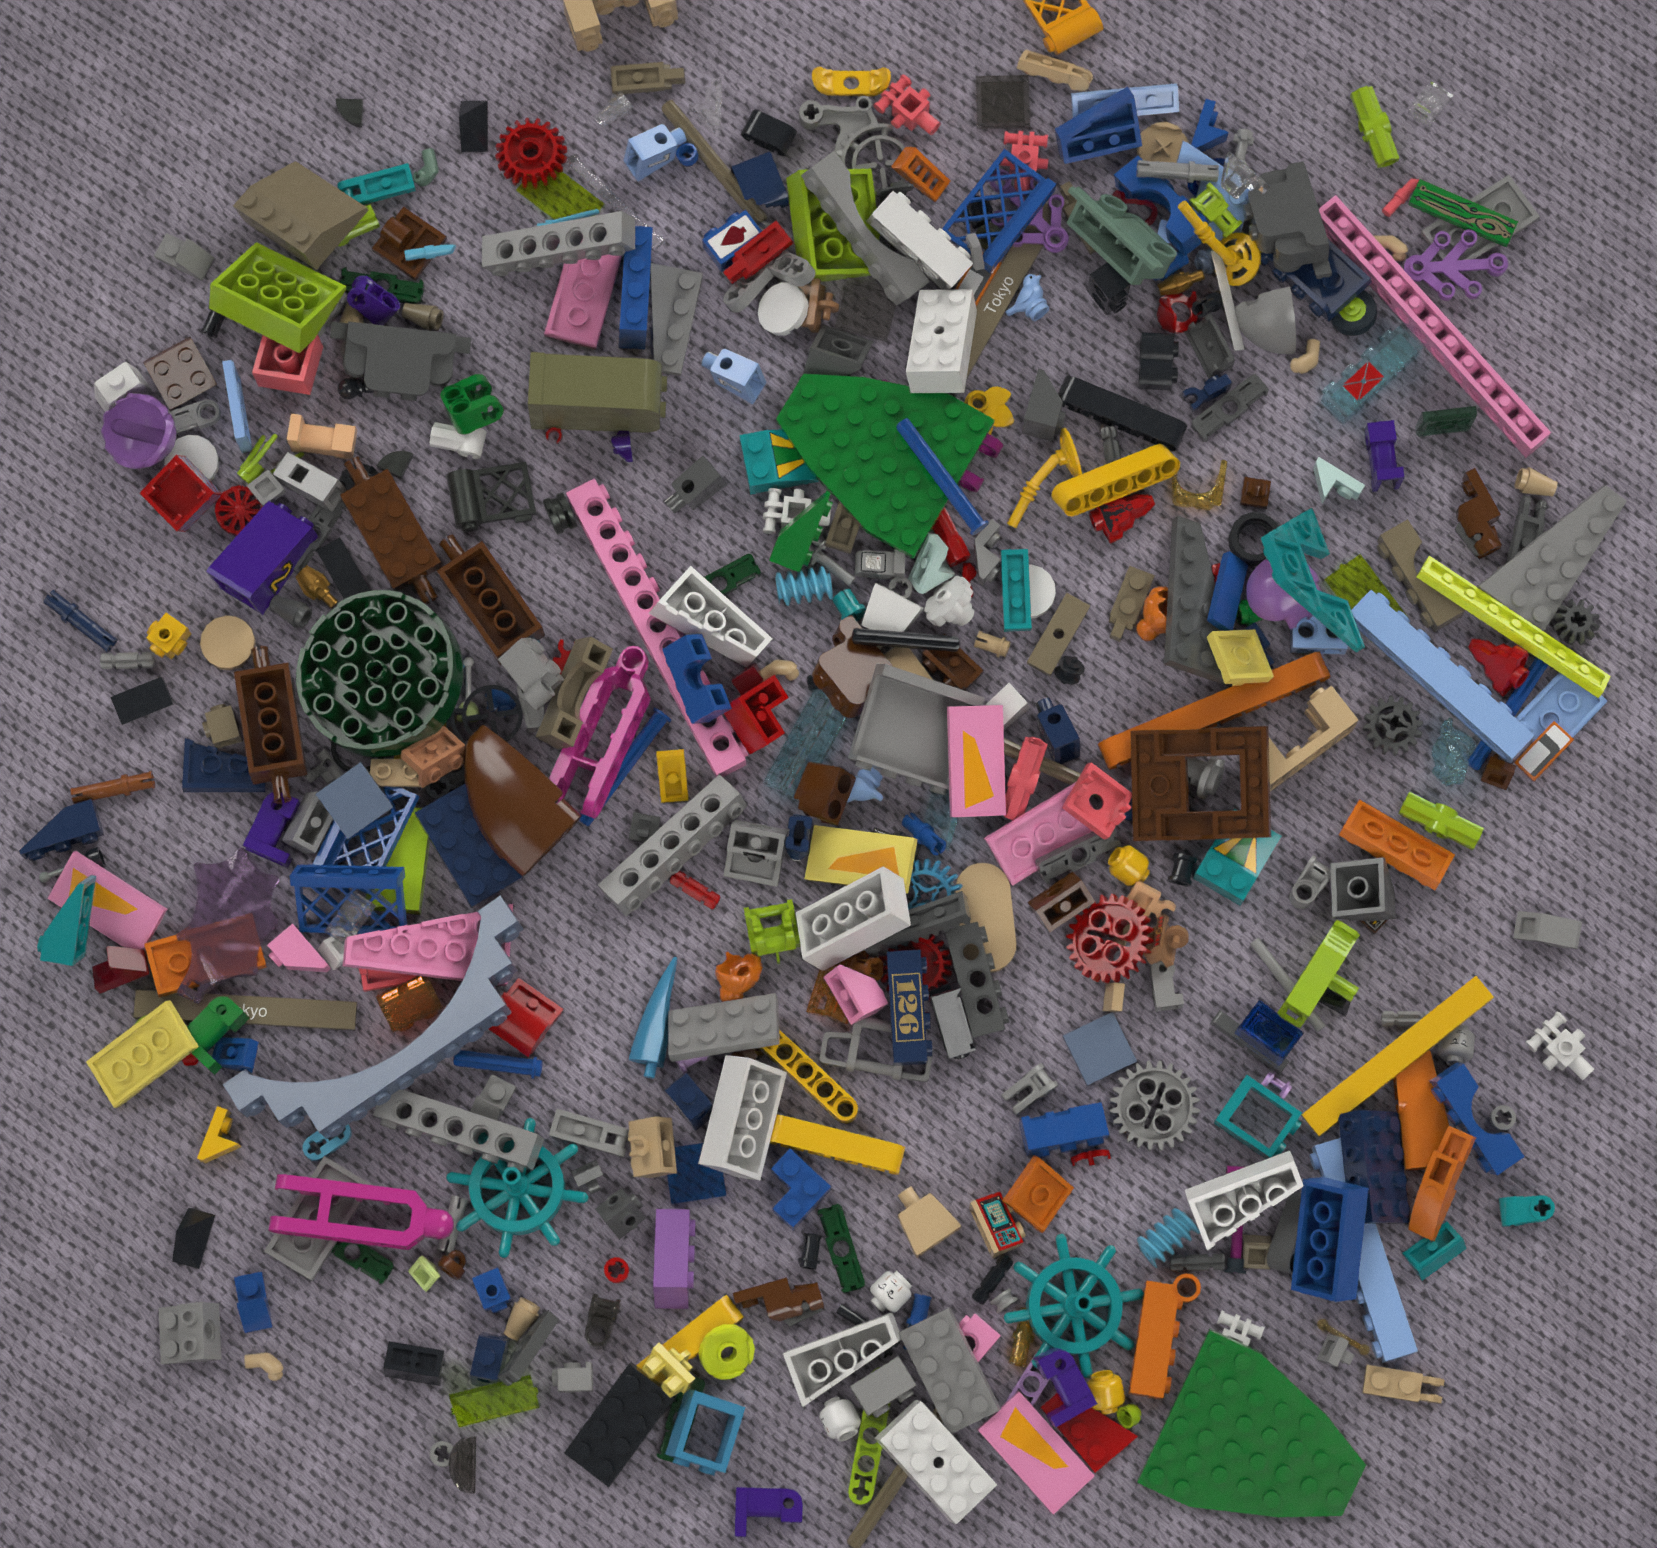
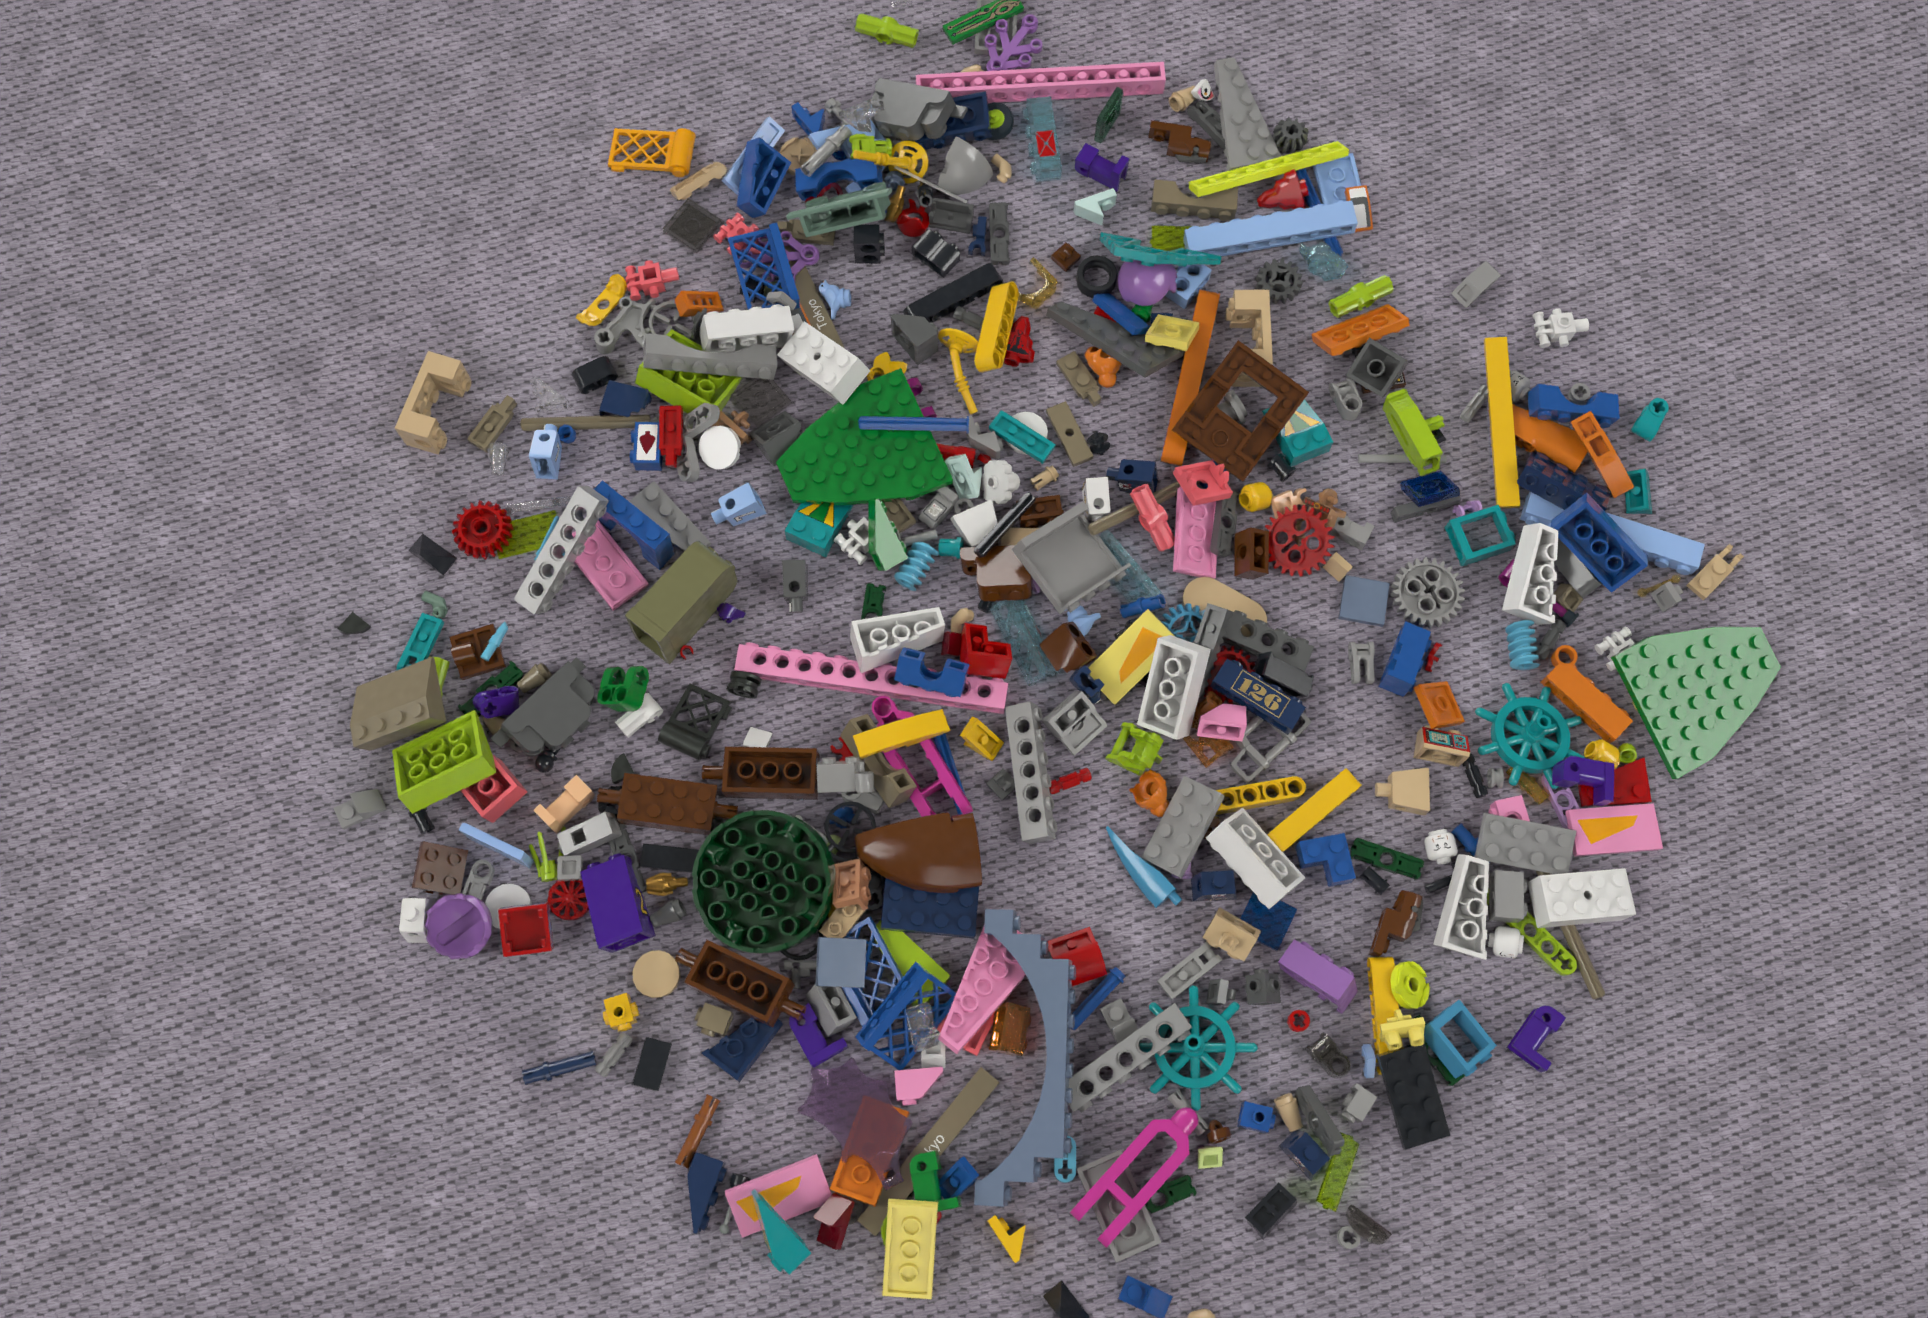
camera: 55 degrees left, 5 degrees down
(517, 566) = (757, 738): none -> white slope
(613, 694) = (901, 733): none -> yellow slope
(622, 1362) = (1370, 1060): none -> light blue tile
(976, 761) = (1121, 536): bright pink tile -> none
(1400, 197) = (942, 48): coral piece -> none
(1498, 772) = (1354, 242): reddish brown tile -> none
(1556, 496) = (1203, 91): none -> white tile

